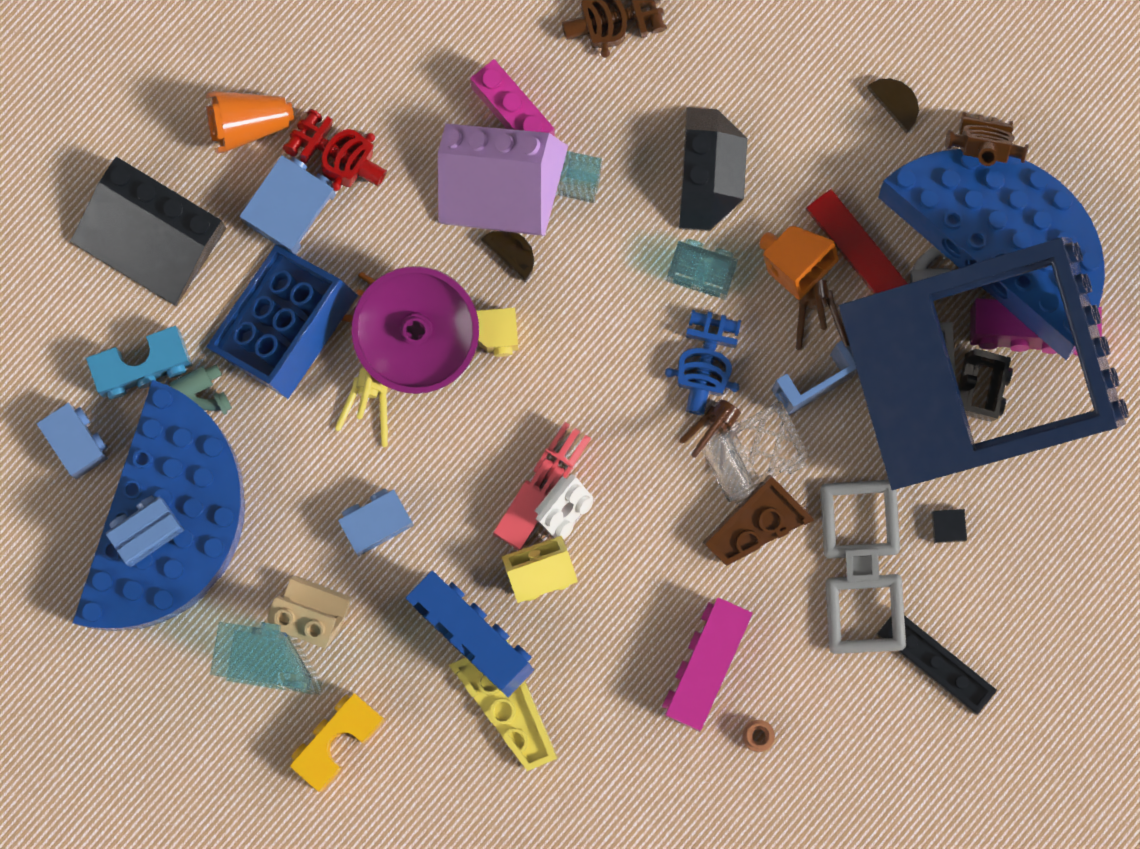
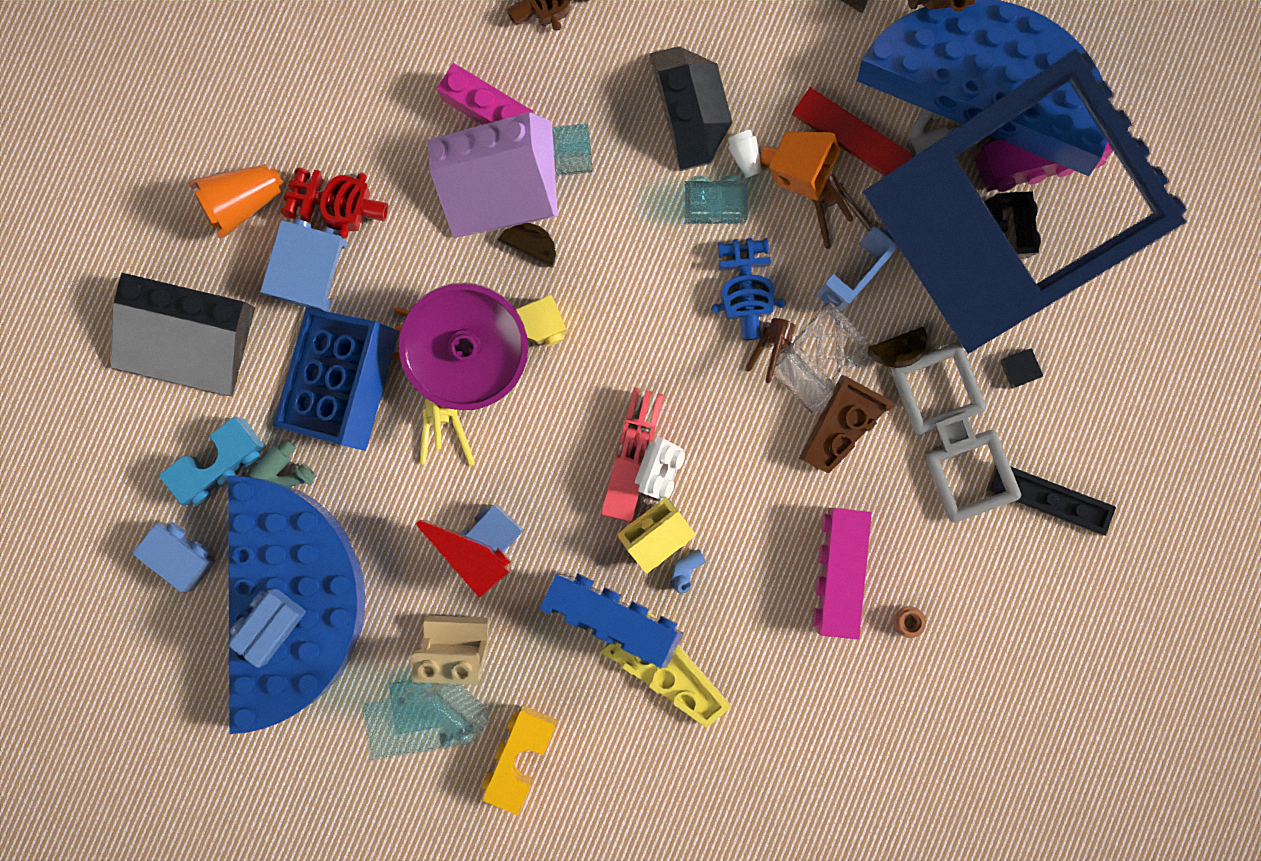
camera: 20 degrees left, 5 degrees up
(357, 532) = (473, 560): none -> red slope
(554, 614) = (683, 569): none -> medium blue arm
(747, 232) = (746, 153): none -> white cone
(835, 469) = (900, 350): none -> dark brown tile

